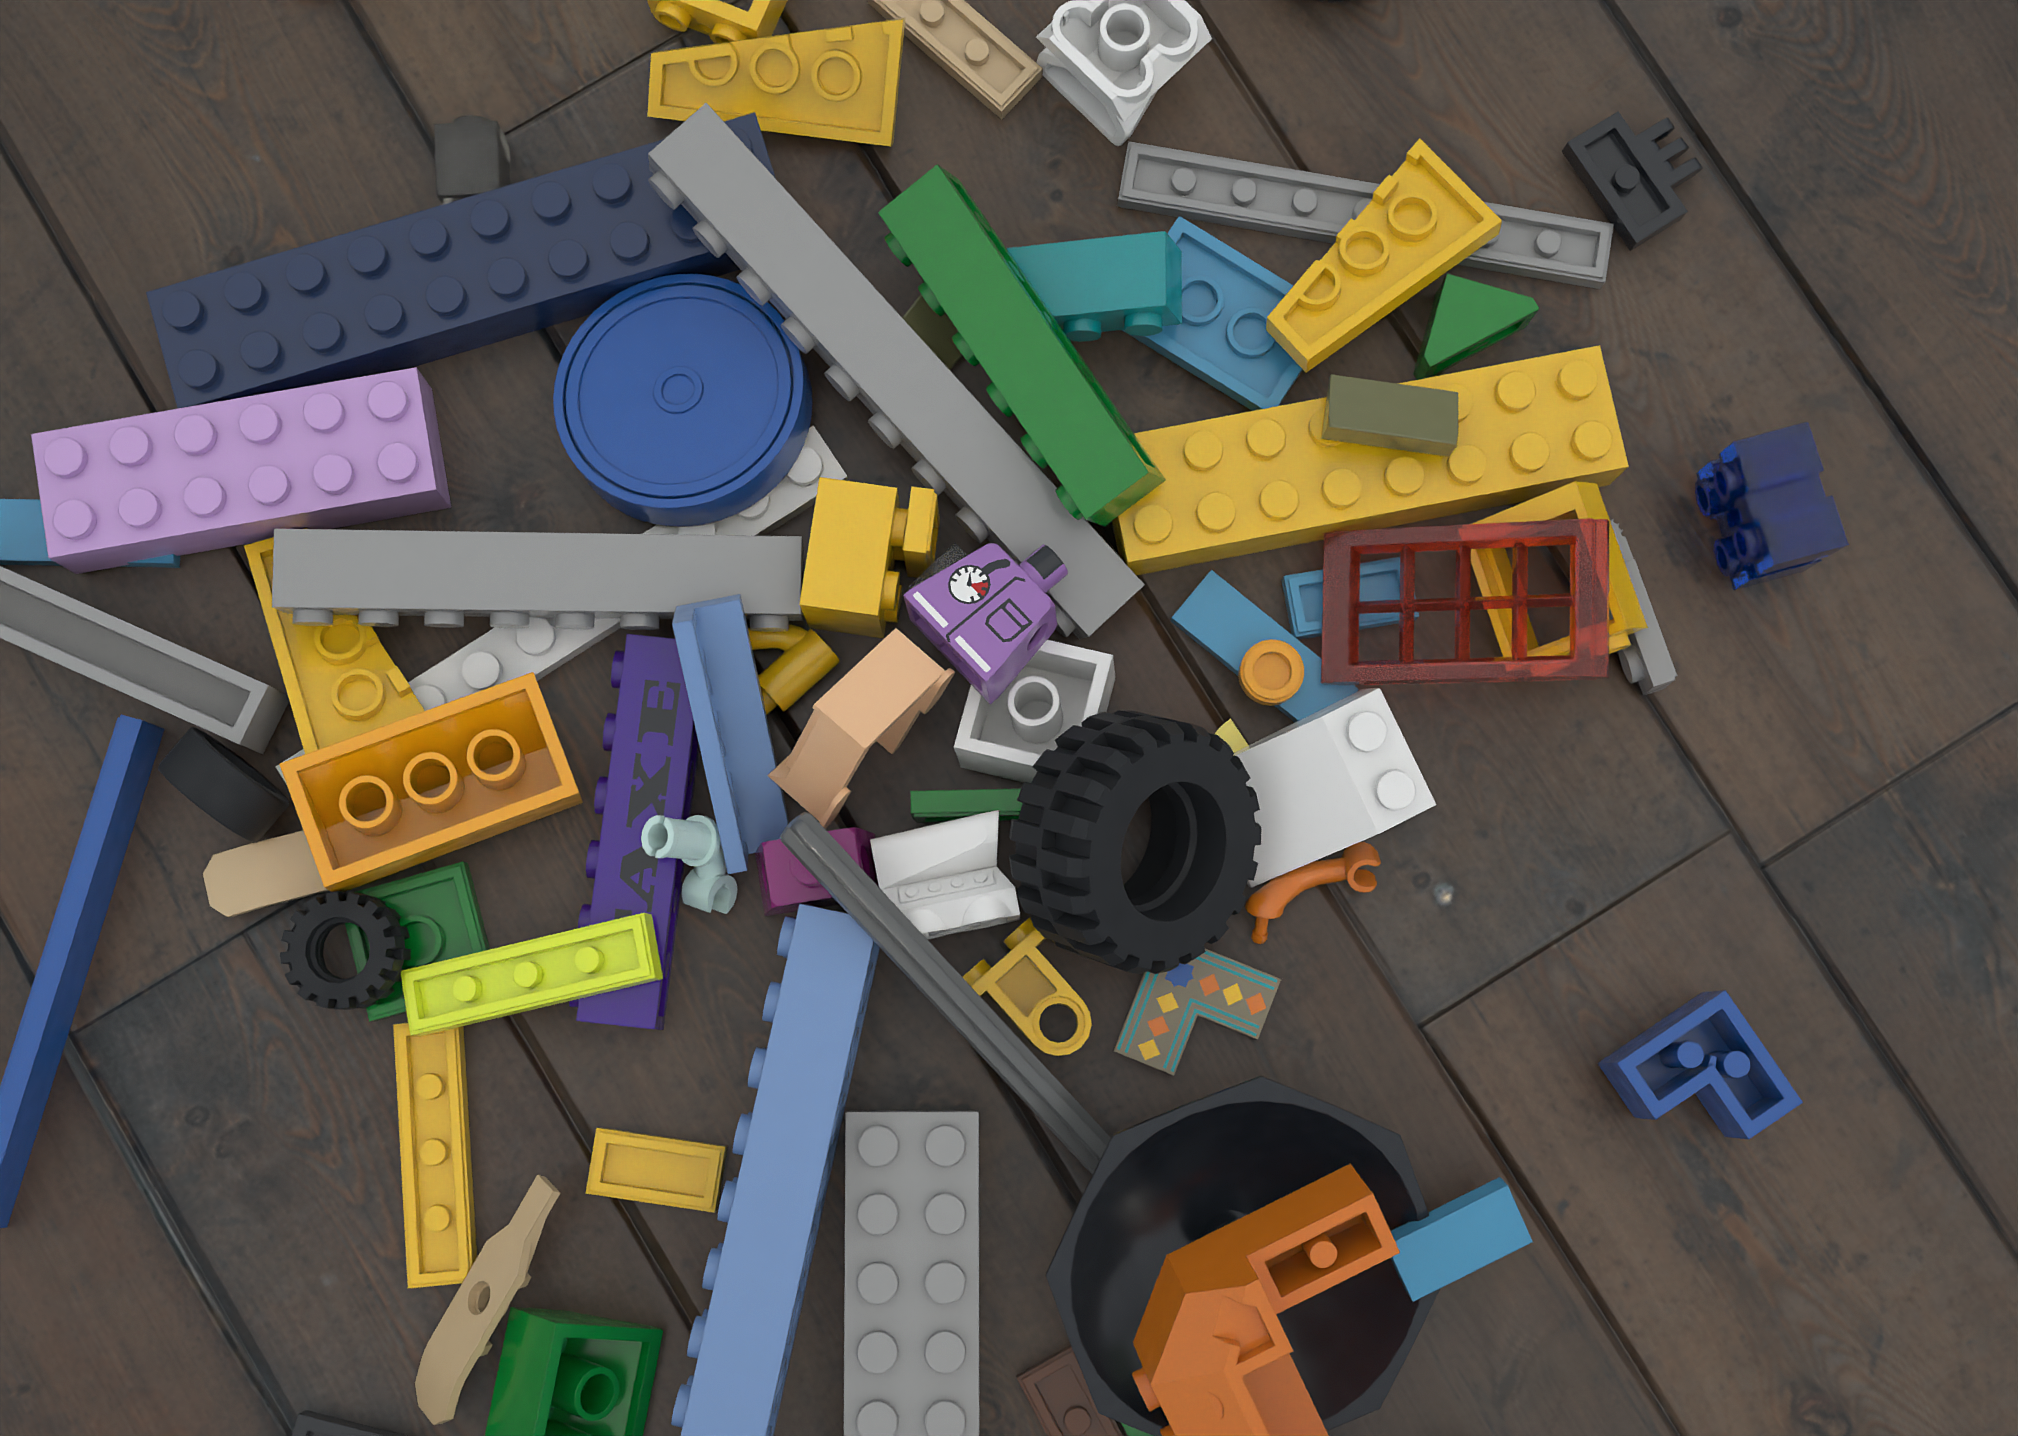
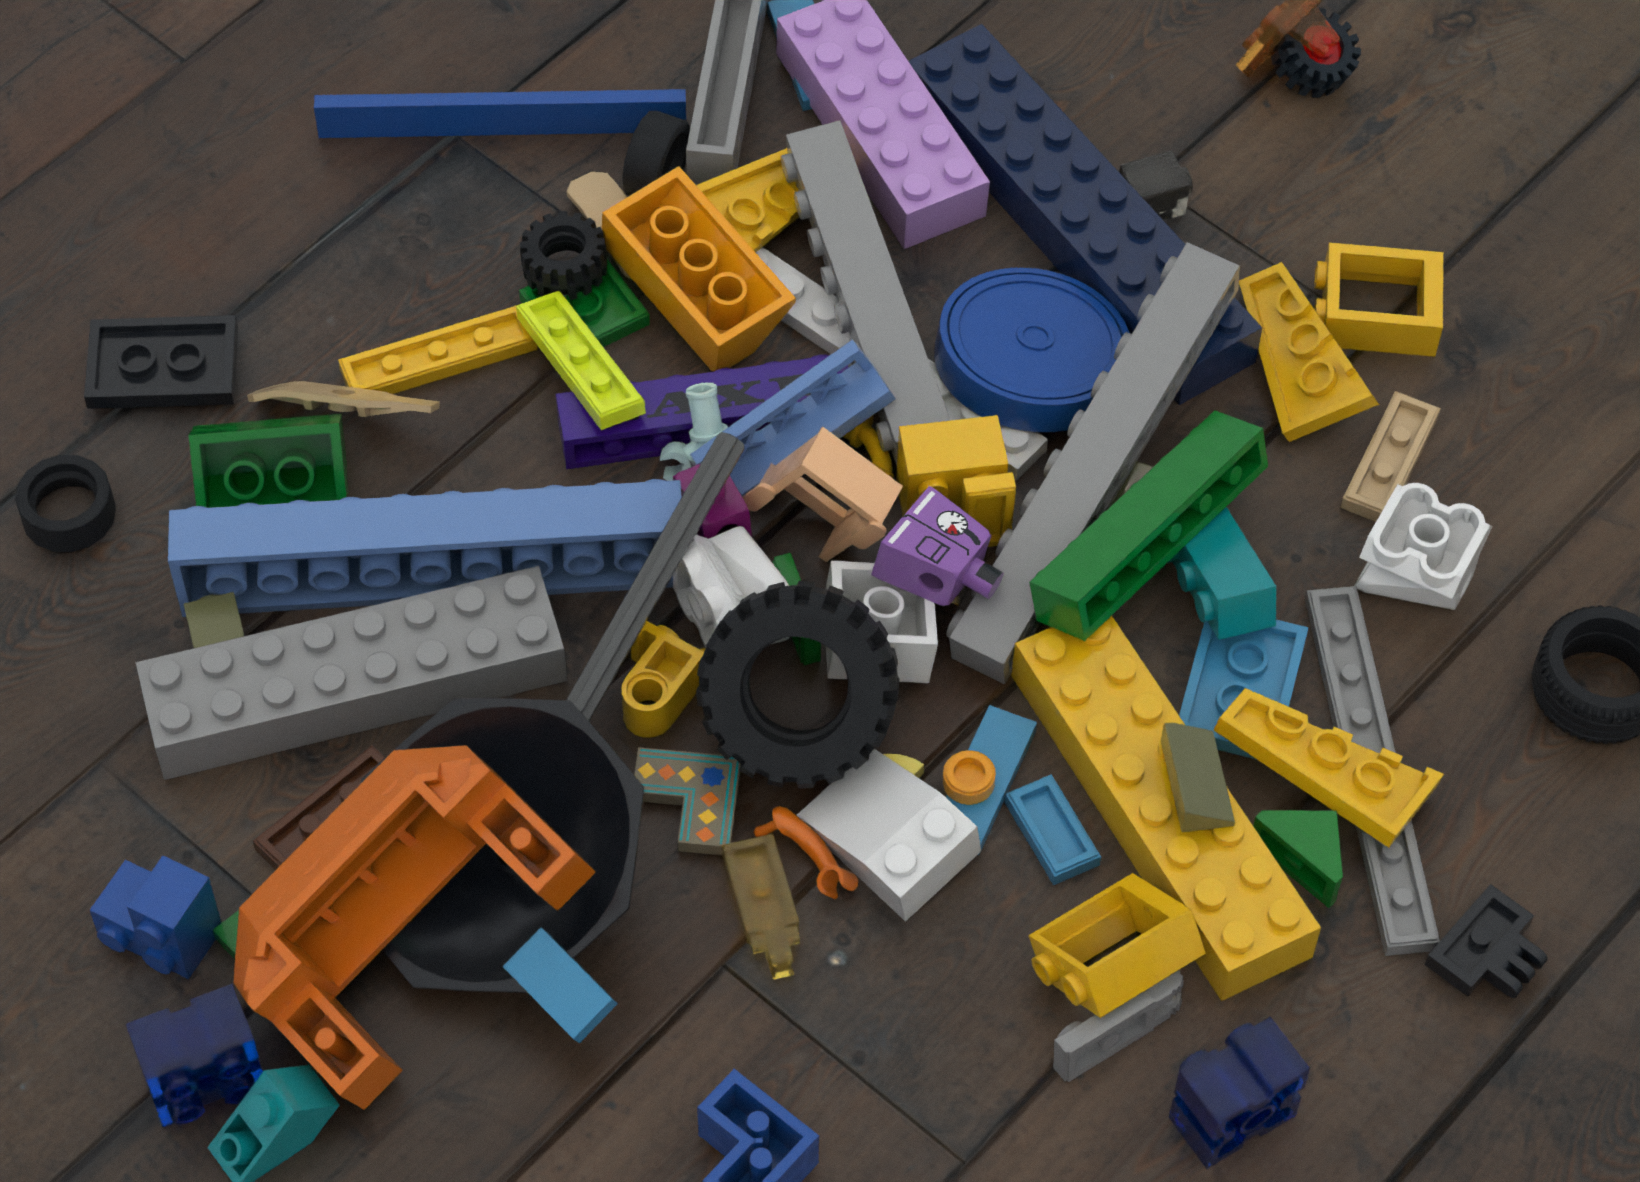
camera: 75 degrees right, 25 degrees down
(656, 1169) = (461, 467): yellow tile -> none
(1361, 959) = (763, 900): none -> clear yellow hinge
(1586, 599) = (1080, 938): clear red piece -> none

